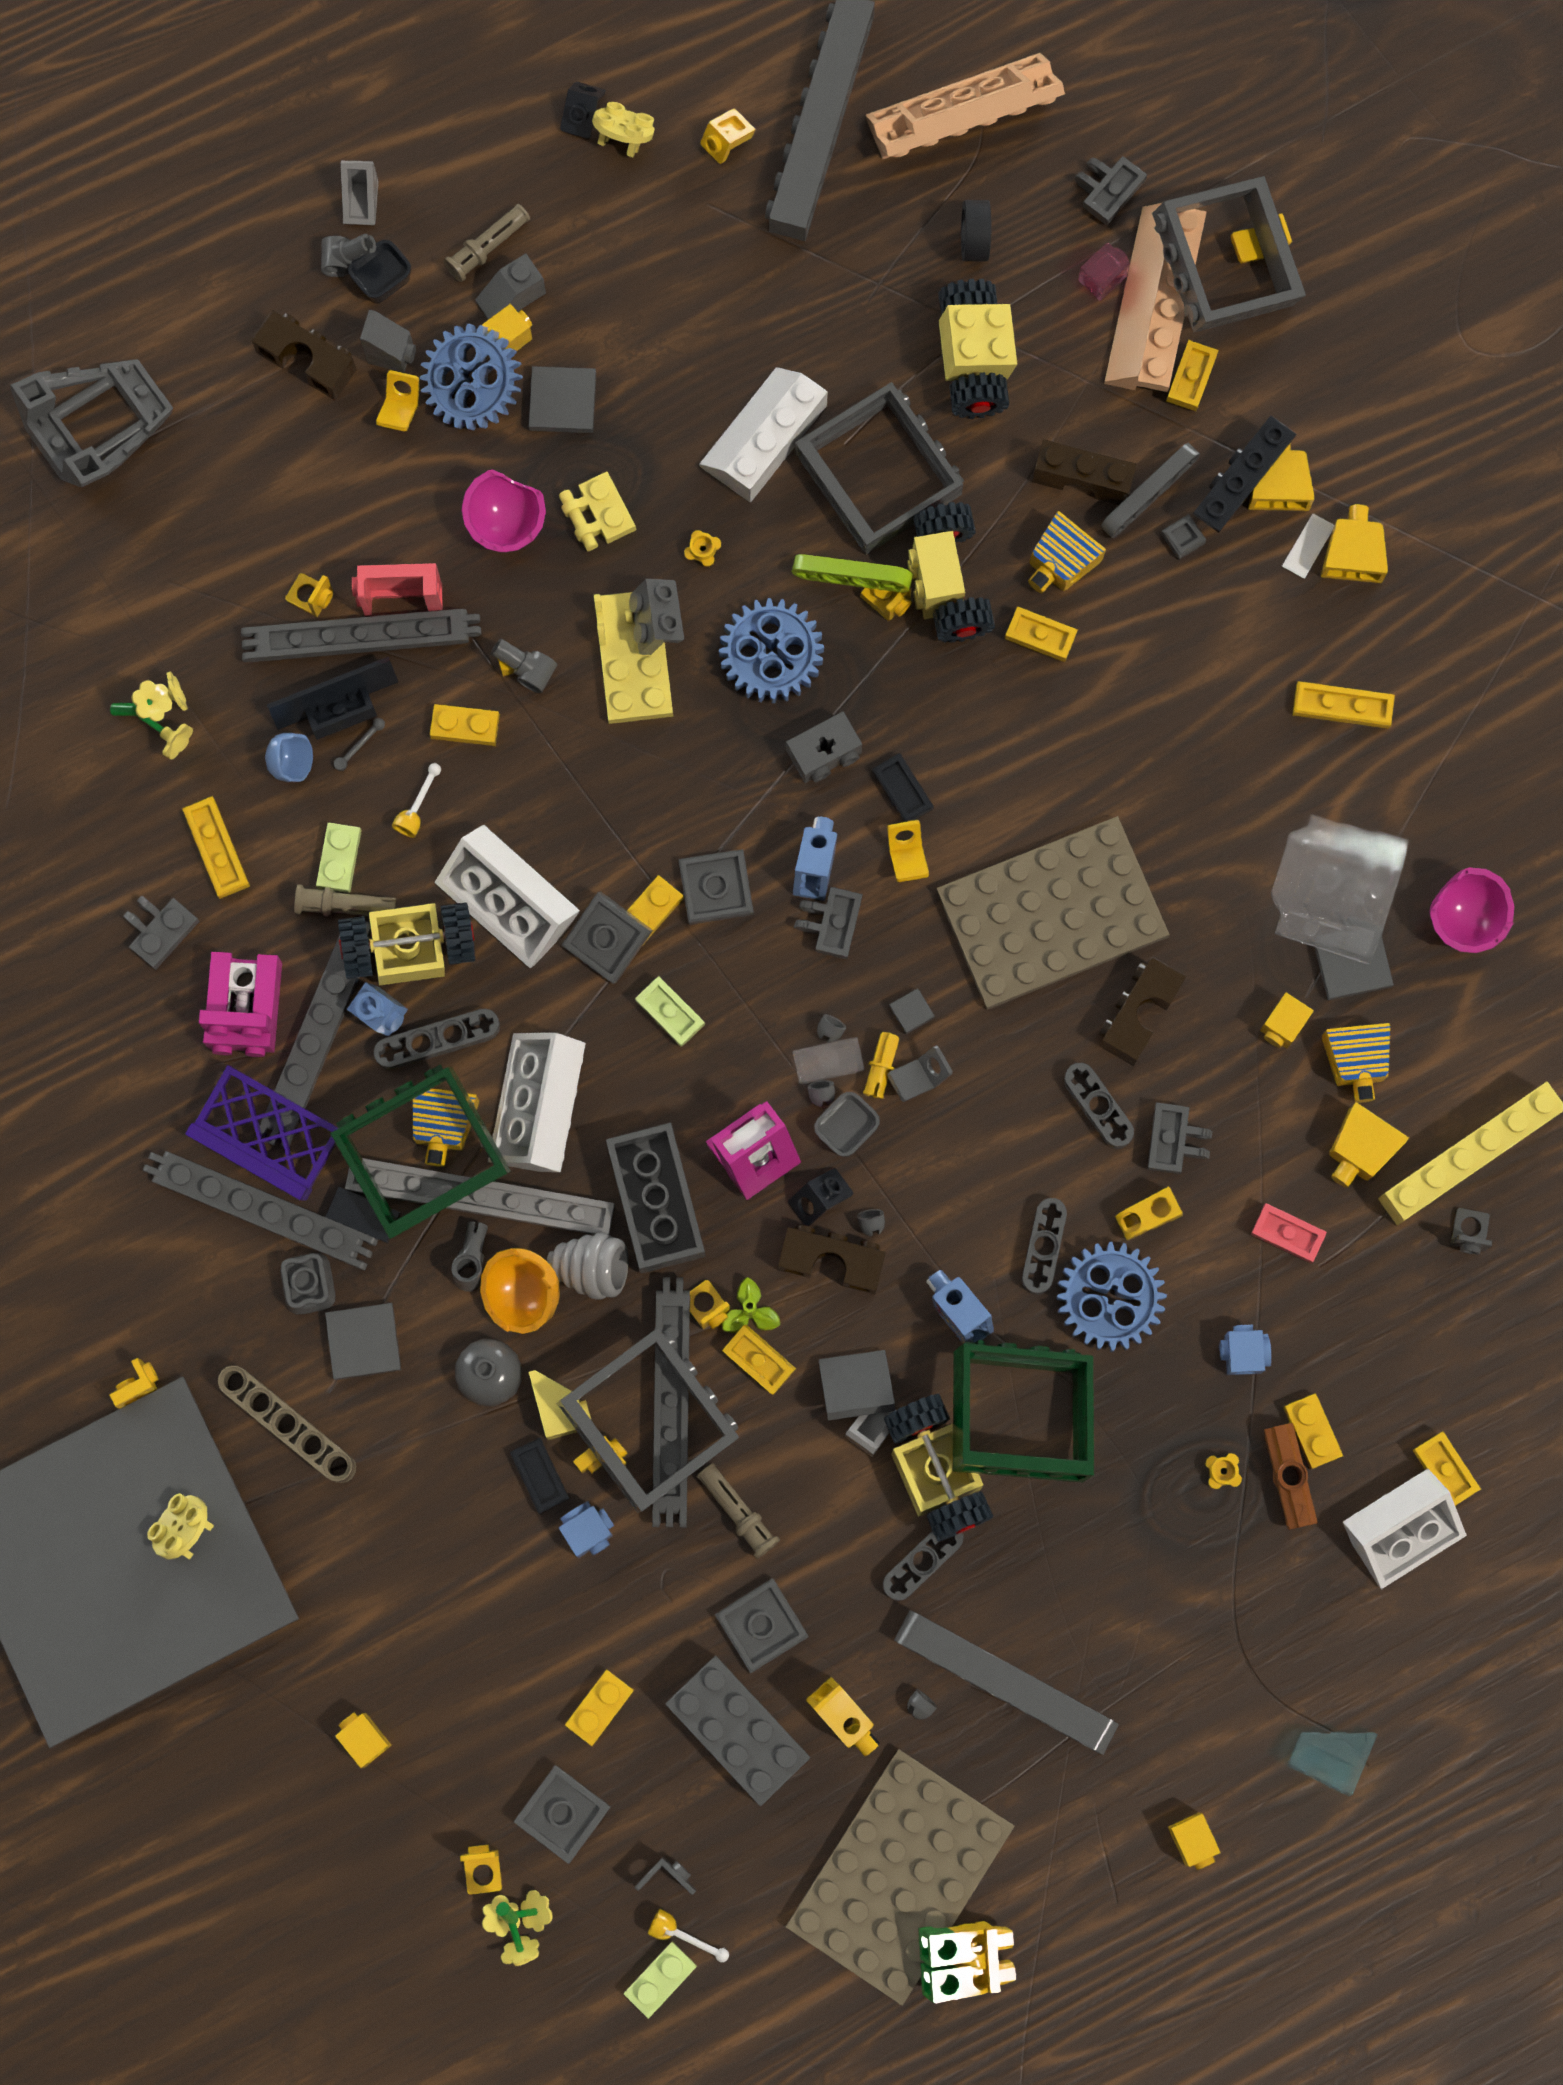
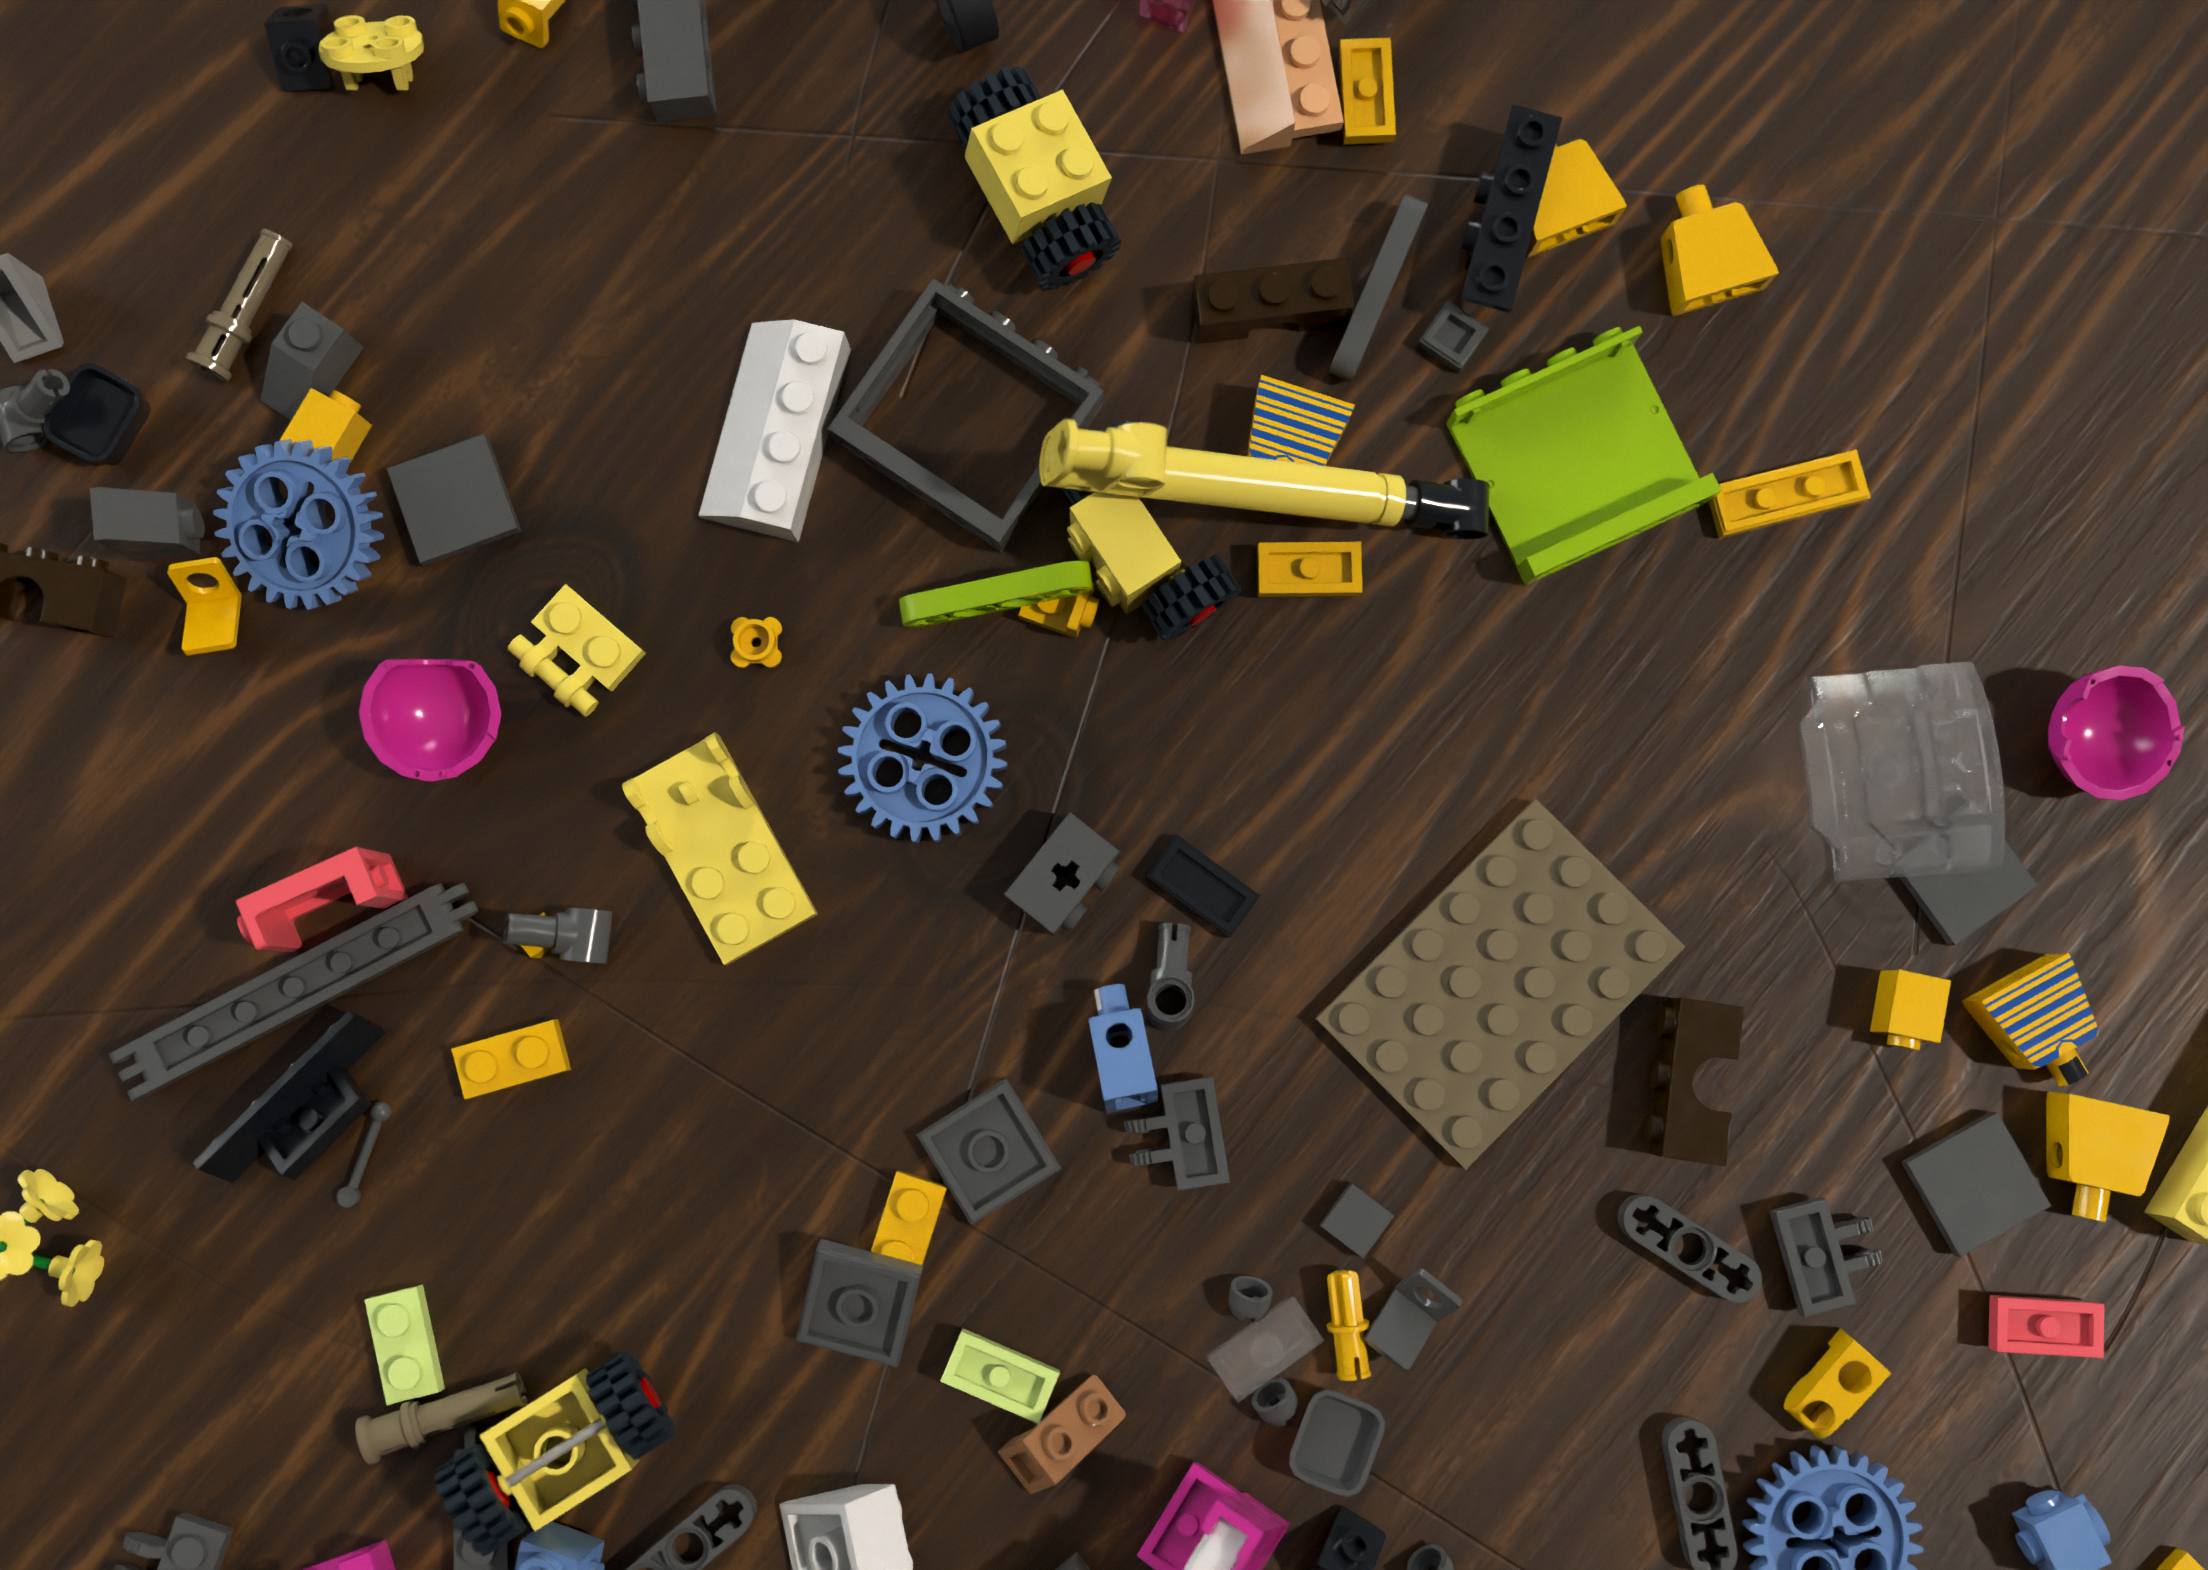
camera: 25 degrees left, 5 degrees up
(216, 847) = (211, 1406): yellow tile -> none
(289, 757) = (263, 1226): medium blue hair -> none
(319, 598) = (207, 954): yellow bracket -> none
(408, 821) = (487, 1244): hinge -> none
(506, 895) = (681, 1299): white slope -> none
(656, 615) = (729, 780): dark grey bracket -> none
(690, 1057) = (1063, 1436): none -> medium nougat bracket
(862, 831) = (1171, 976): none -> dark grey pin
(907, 855) = (1253, 986): yellow bracket -> none
(959, 524) = (1139, 464): none -> light yellow piece
(1227, 632) = (1577, 455): none -> lime panel
(1283, 1139) = (1975, 1184): none -> dark grey tile
(1308, 546) = (1636, 277): white sticker -> none

